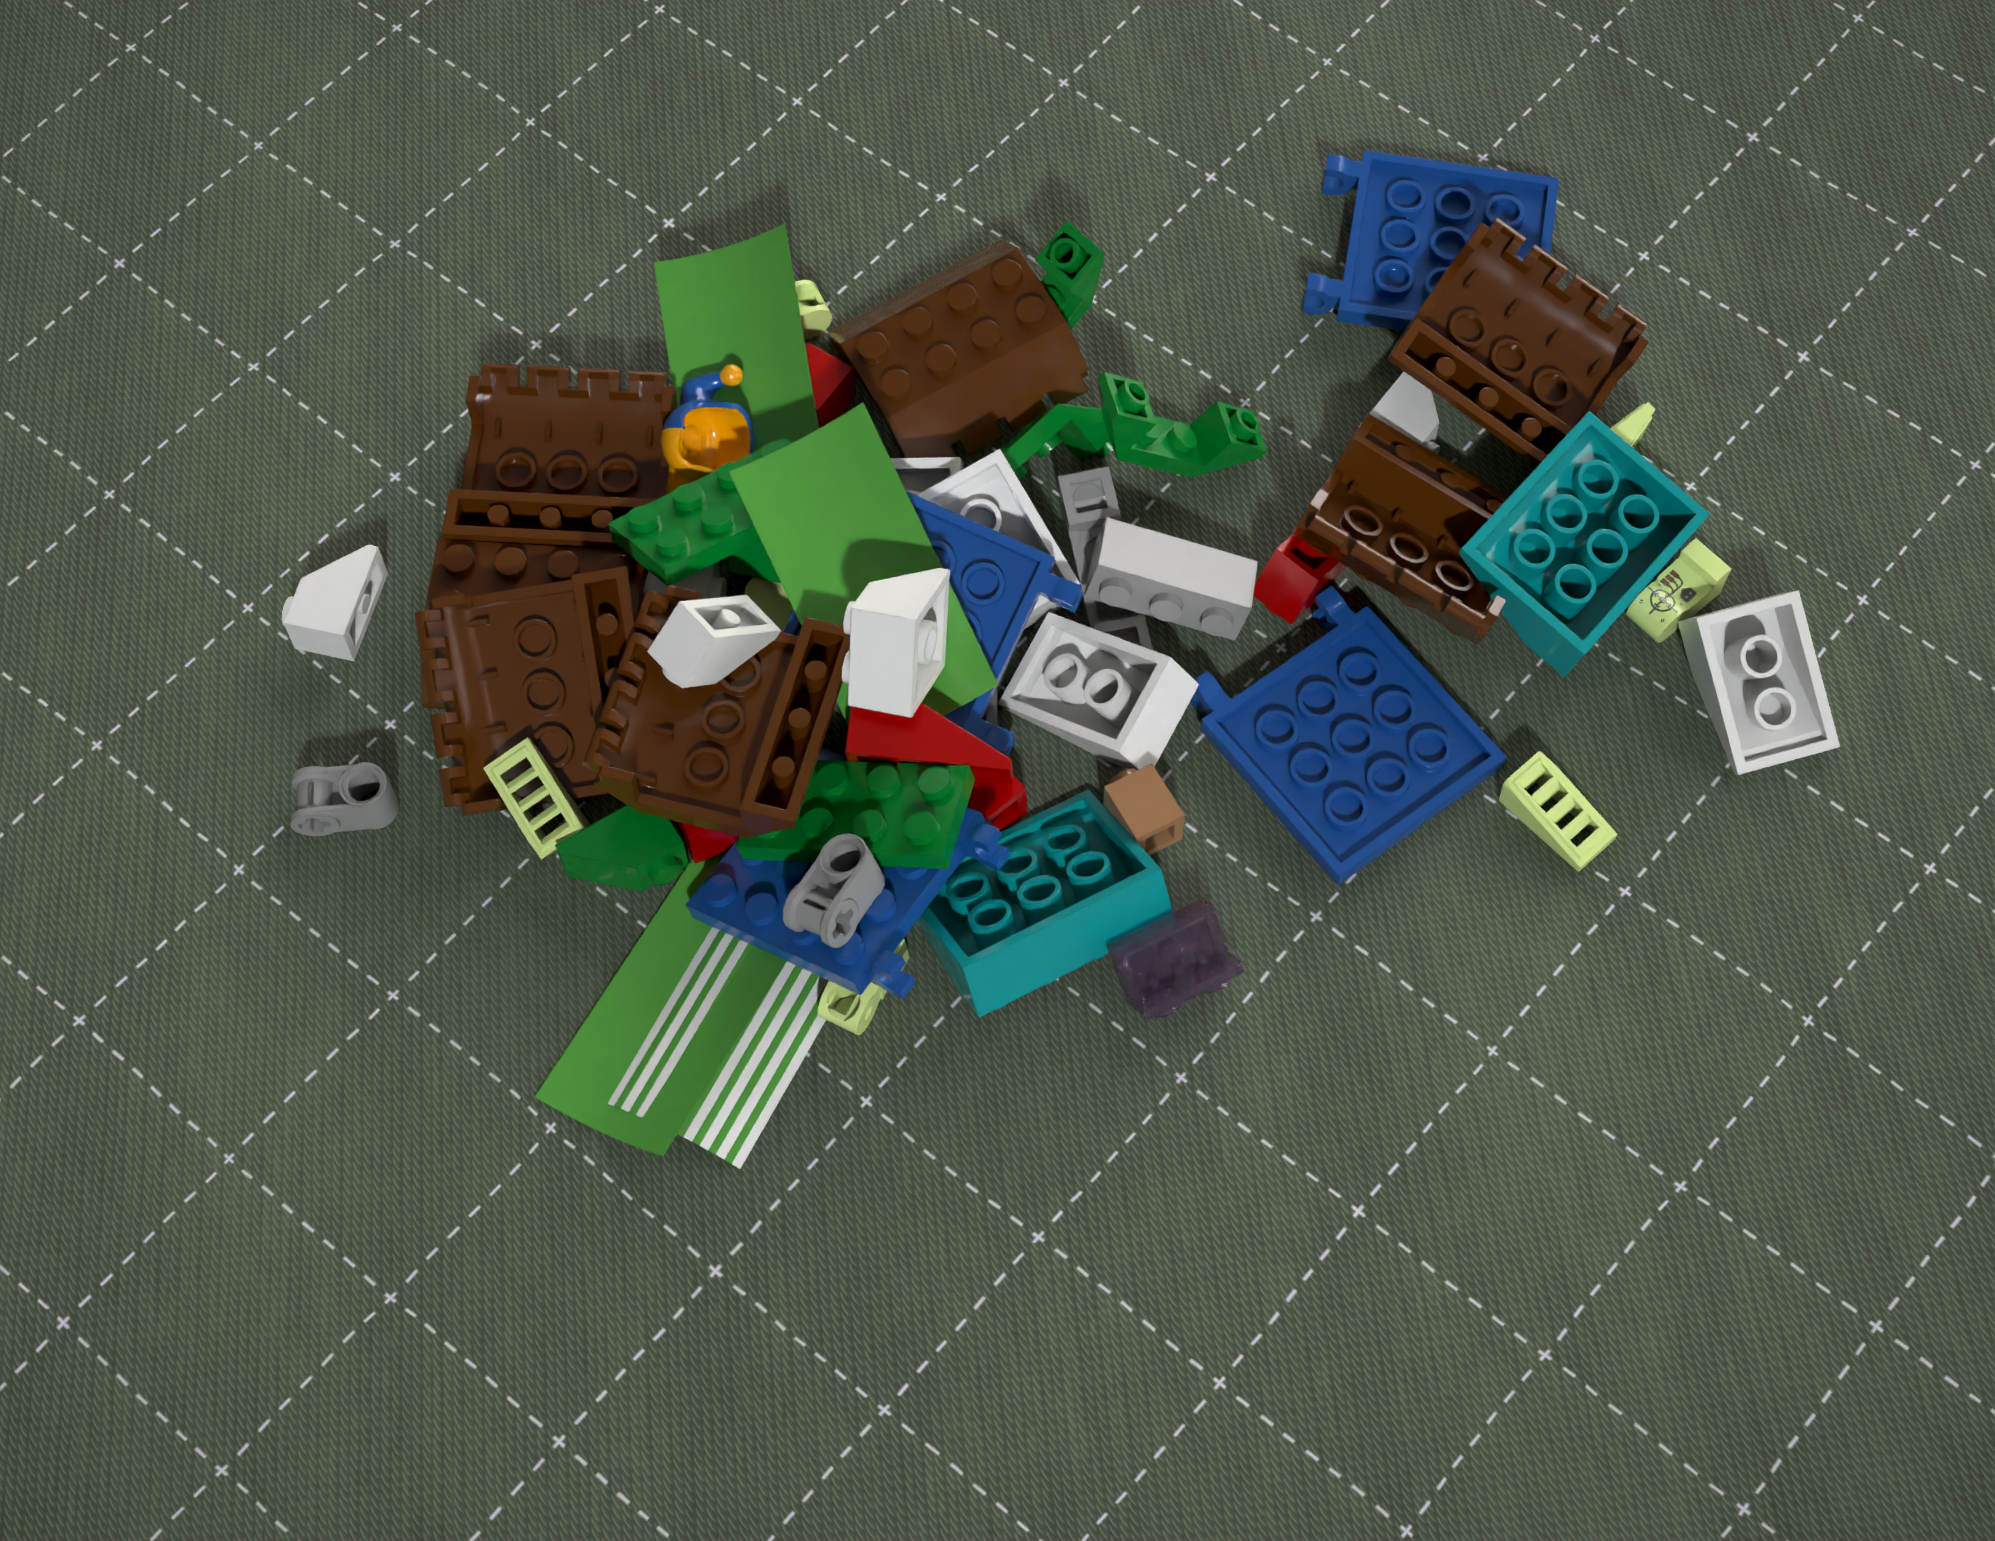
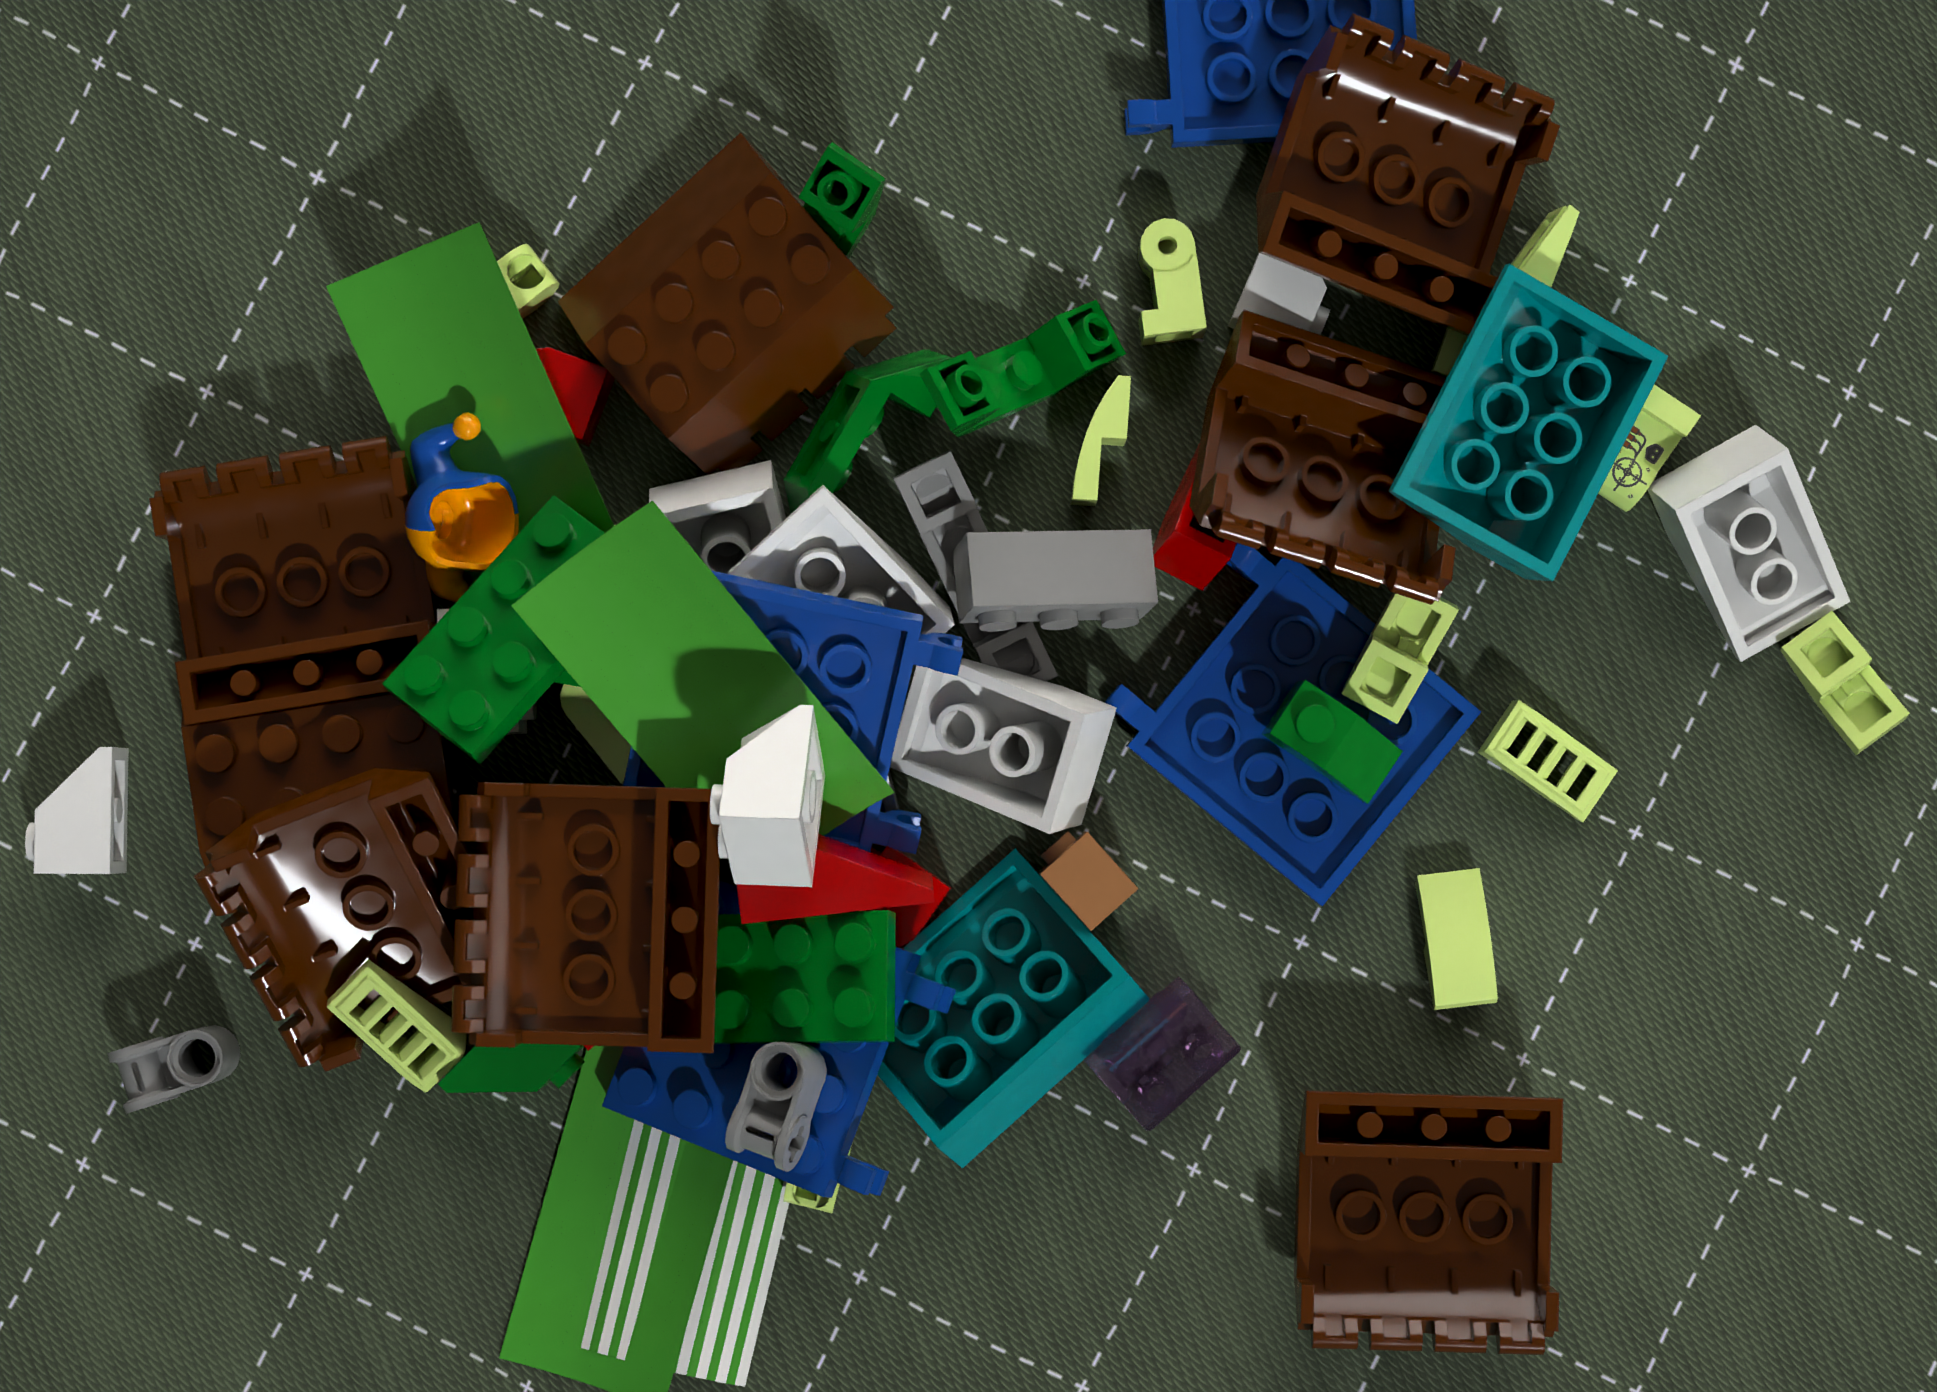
camera: 15 degrees left, 25 degrees up
(711, 639) = (555, 831): white slope -> none
(1233, 498) = (1107, 427): none -> yellowish green slope
(1316, 396) = (1171, 263): none -> yellowish green leg
(1374, 738) = (1332, 740): none -> green slope
(1381, 1132) = (1426, 1220): none -> reddish brown slope
(1447, 689) = (1398, 654): none -> yellowish green slope
(1451, 933) = (1457, 939): none -> yellowish green slope
(1823, 807) = (1843, 683): none -> yellowish green slope

